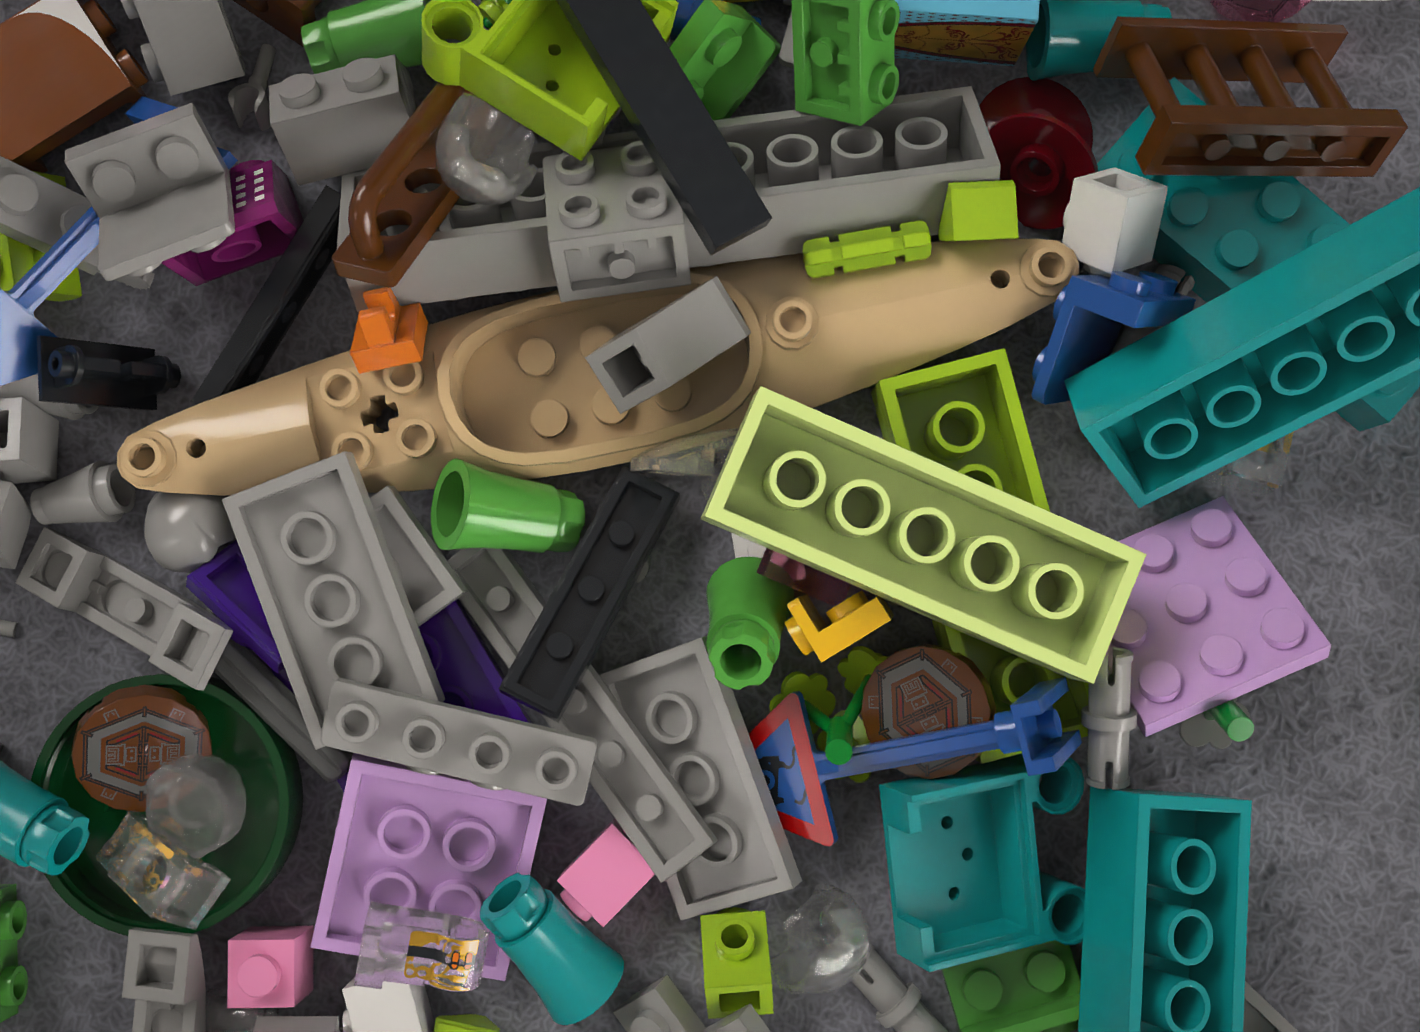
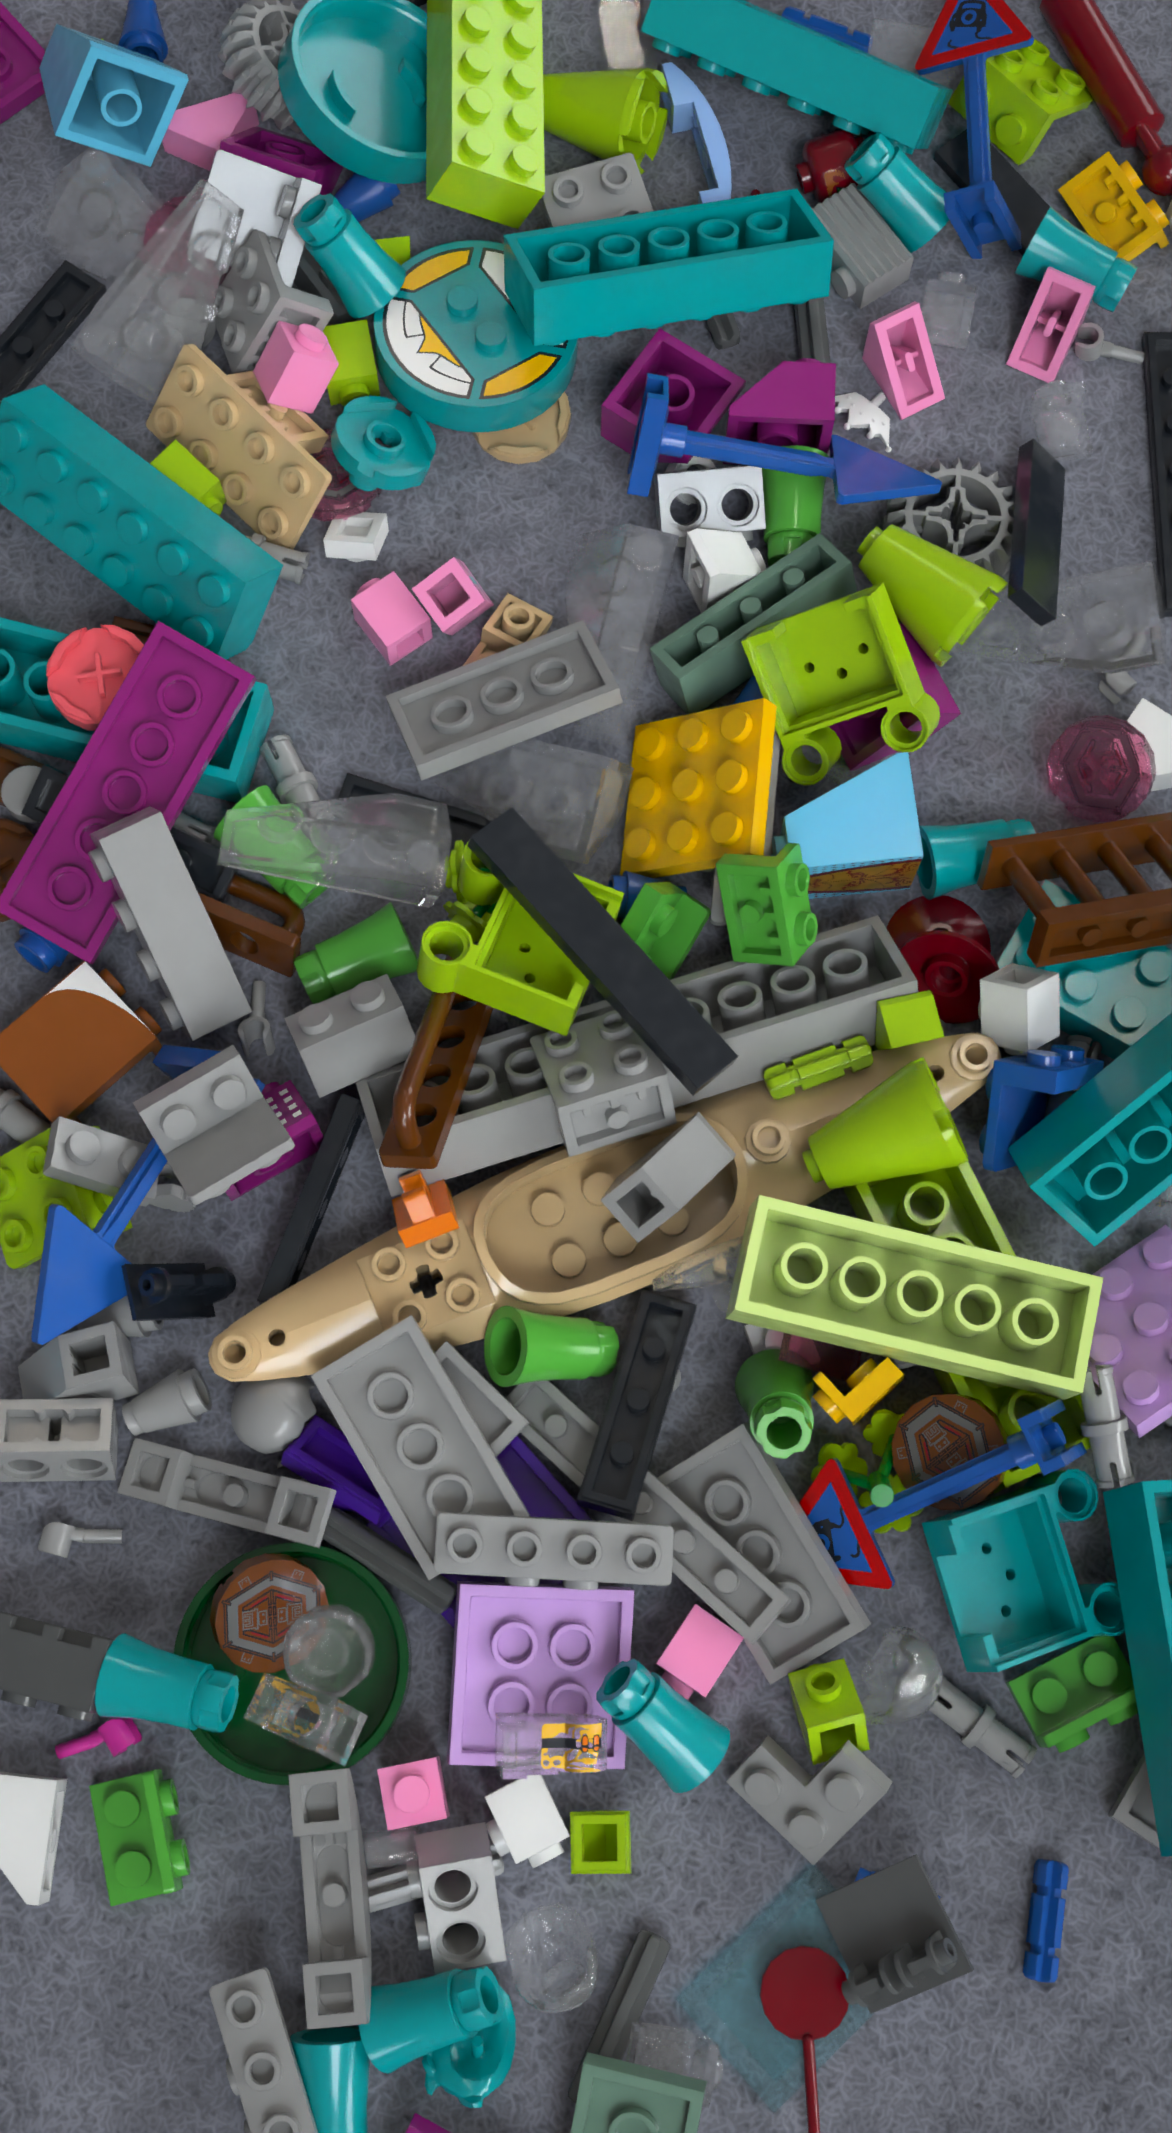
camera: 15 degrees left, 10 degrees down
(484, 153) = (485, 1045): clear hair -> none
(930, 339) = (888, 1133): none -> lime cone

